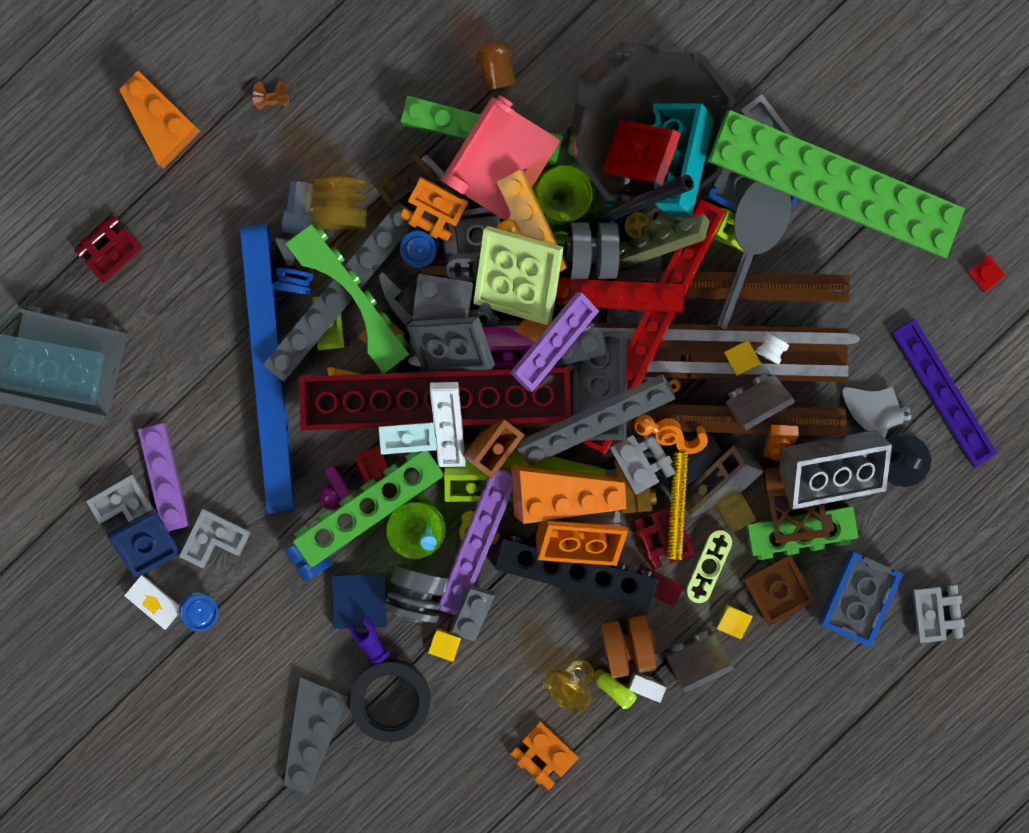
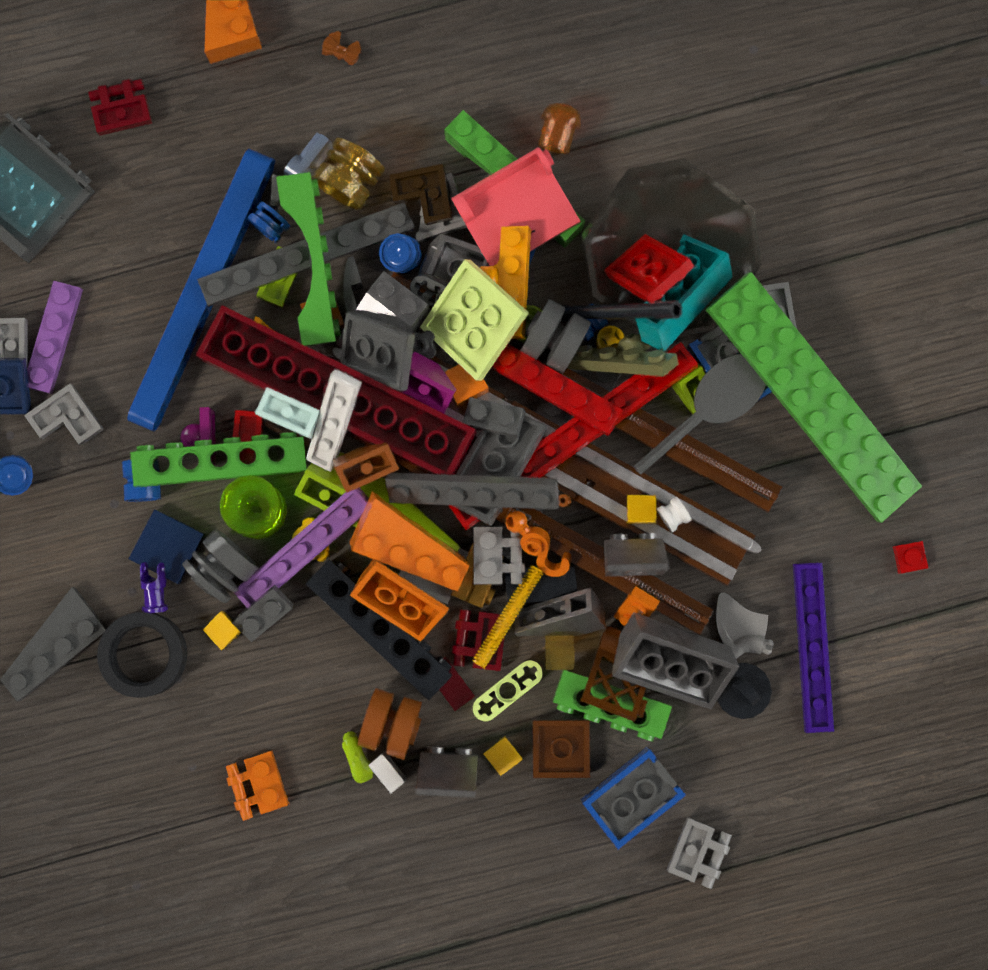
camera: 30 degrees right, 5 degrees down
(428, 541) = (256, 521): medium azure piece -> none
(437, 201) = (437, 217): orange plate -> none
(554, 341) = (473, 397): medium lavender plate -> none
(568, 689) = (313, 735): clear yellow tile -> none
(573, 187) = (567, 267): clear neon green wheel -> none

